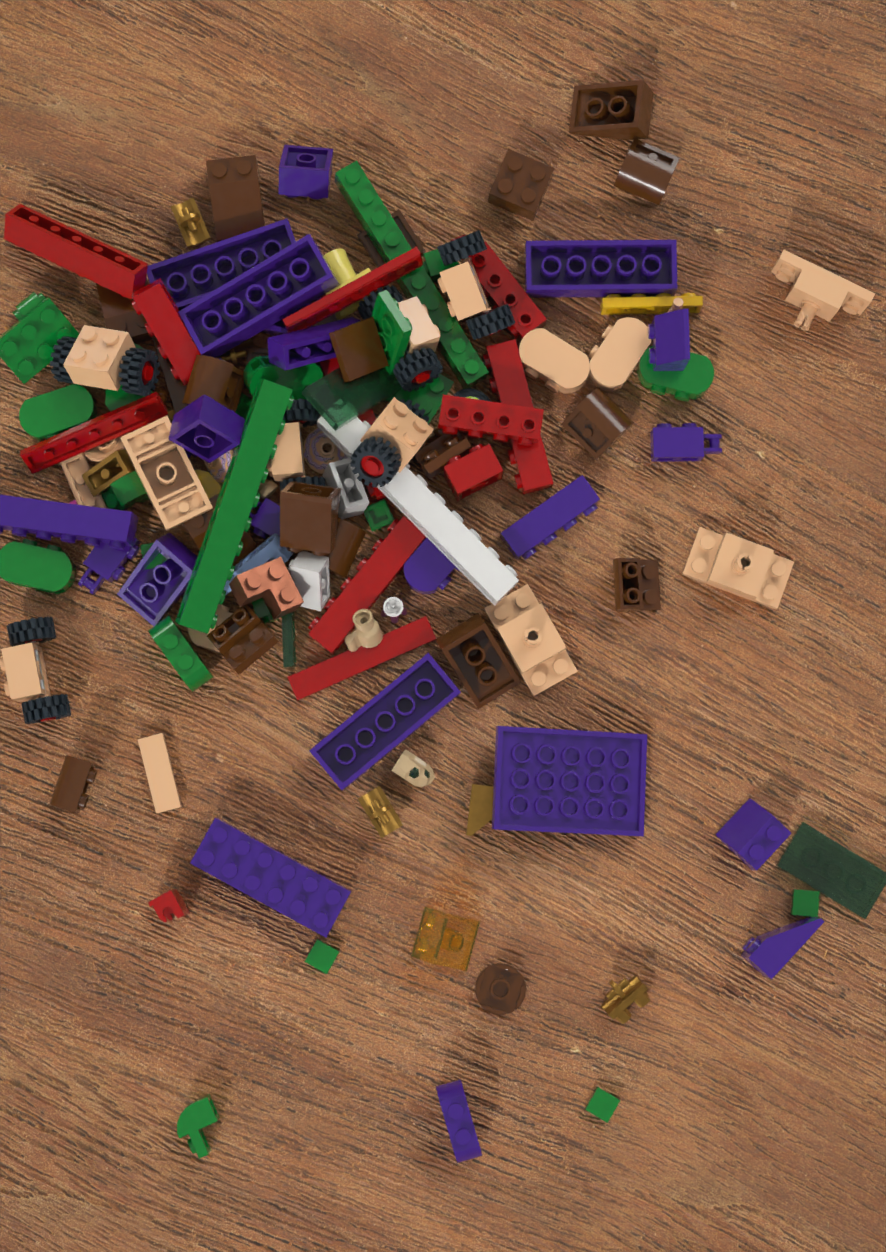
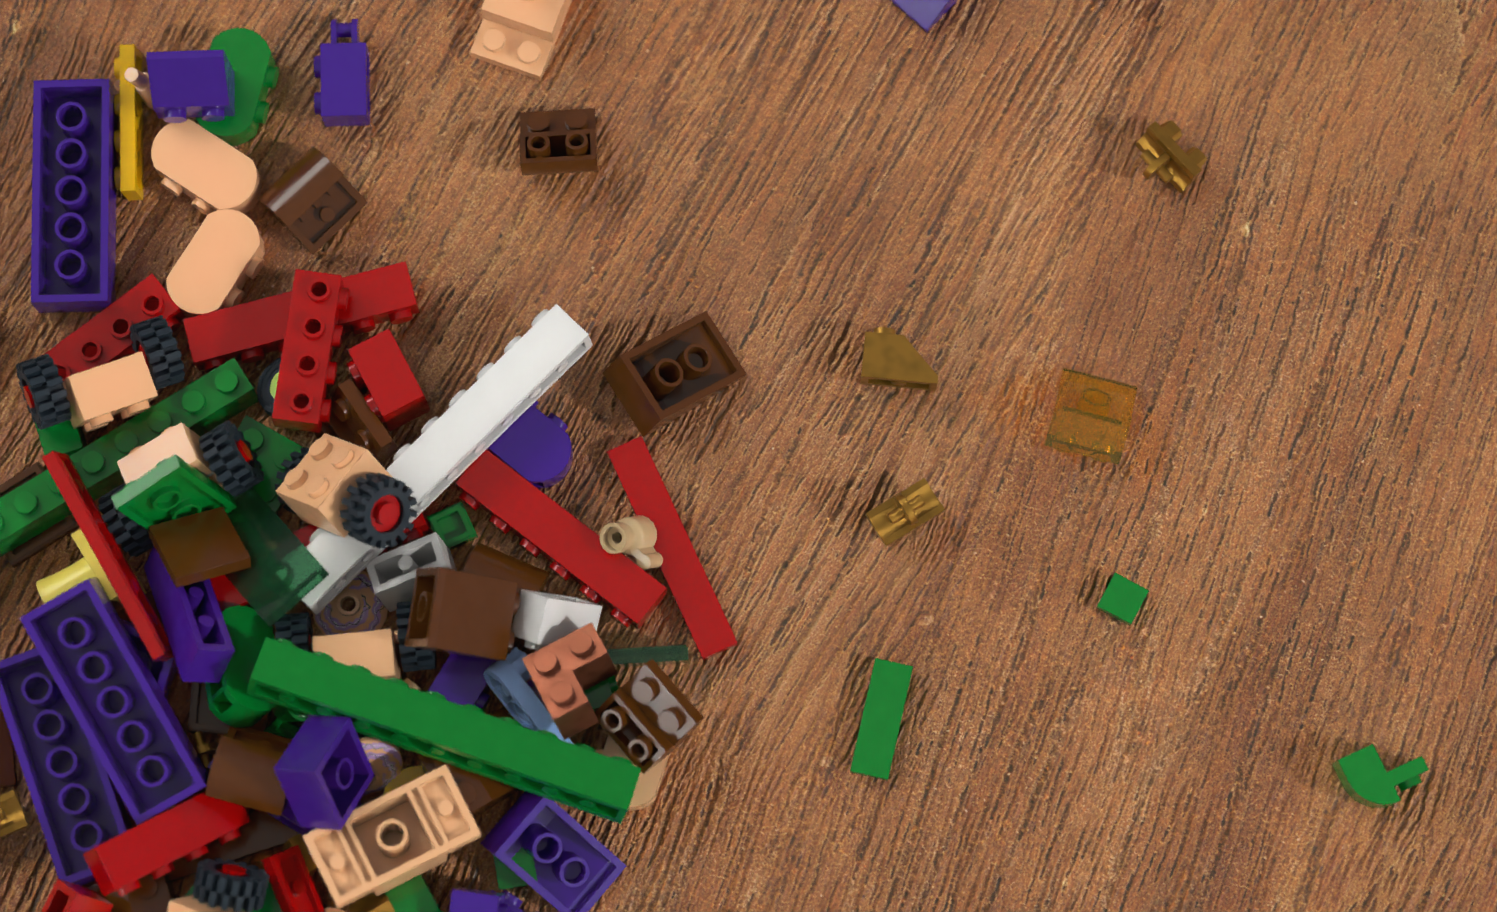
camera: 85 degrees left, 5 degrees down
(159, 773) = (852, 850): light nougat tile -> none
(168, 904) = (1050, 829): red hinge -> none
(180, 653) = (669, 818): green brick -> none
(245, 794) = (881, 719): none -> green tile
(271, 877) = (1006, 674): dark purple brick -> none
(385, 721) = (770, 506): dark purple brick -> none
(393, 607) = (595, 497): white piece -> none
(413, 770) = (840, 467): tan rock -> none
(459, 1121) = (1356, 390): dark purple brick -> none
(500, 989) = (1161, 337): reddish brown tile -> none
(531, 640) = (643, 295): light nougat brick -> none
(549, 518) = (457, 269): dark purple brick -> none
(569, 781) = (854, 235): dark purple plate -> none
(602, 1104) = (1323, 189): green tile -> none

